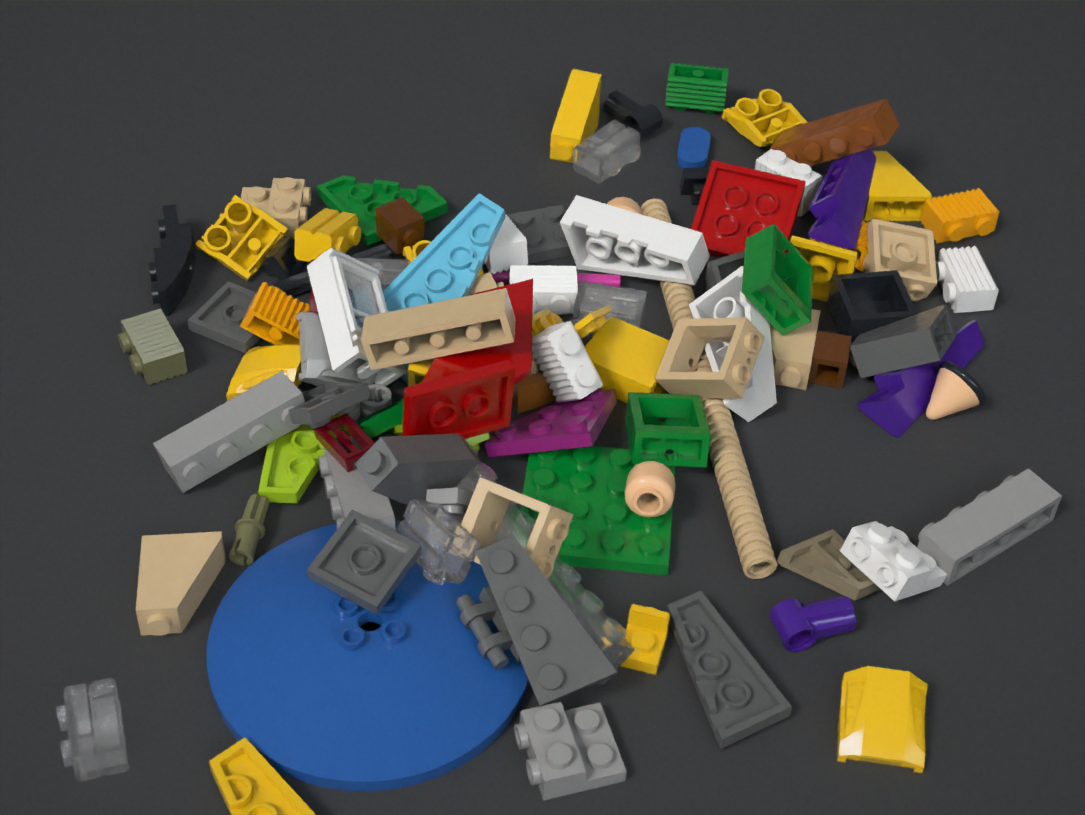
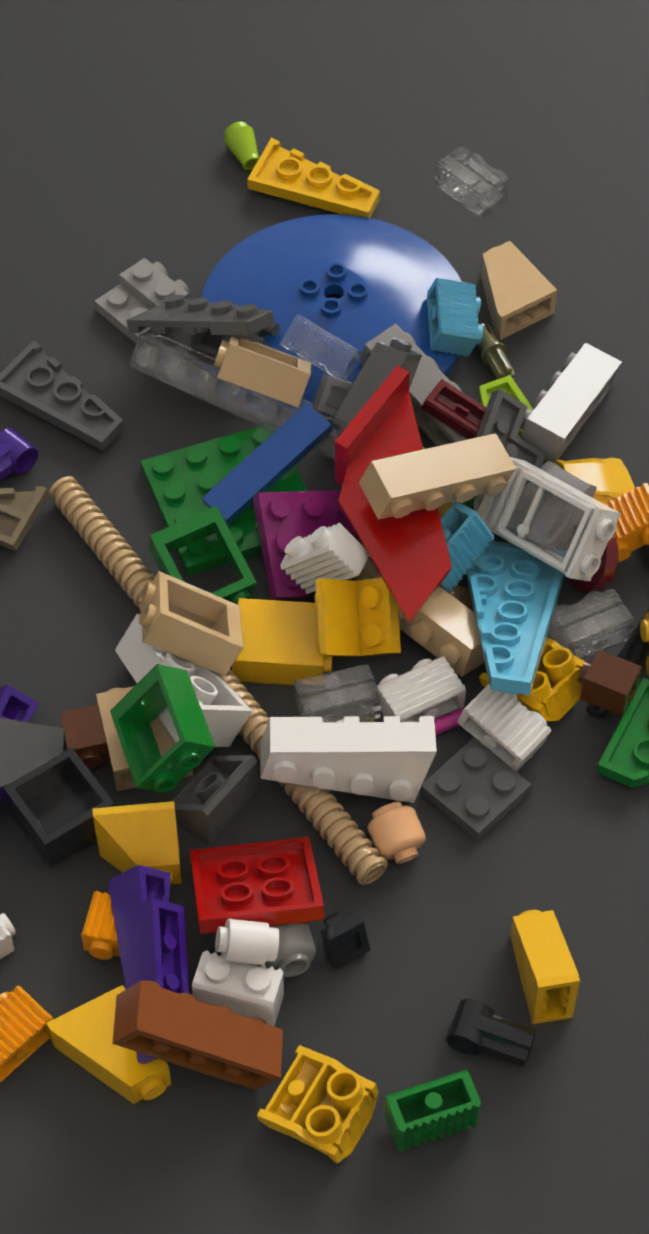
camera: 155 degrees right, 10 degrees up
(268, 549) = (453, 317): none -> medium azure brick
(364, 561) = (359, 300): dark grey plate -> none
(557, 470) = (268, 463): none -> blue tile
(607, 151) = (479, 943): clear brick -> none
(647, 635) = (130, 397): yellow bracket -> none
(650, 489) = (182, 487): light nougat head -> none
(693, 148) = (386, 1021): blue tile -> none
(777, 161) = (247, 942): none -> white brick
(903, 249) = (51, 895): tan plate -> none

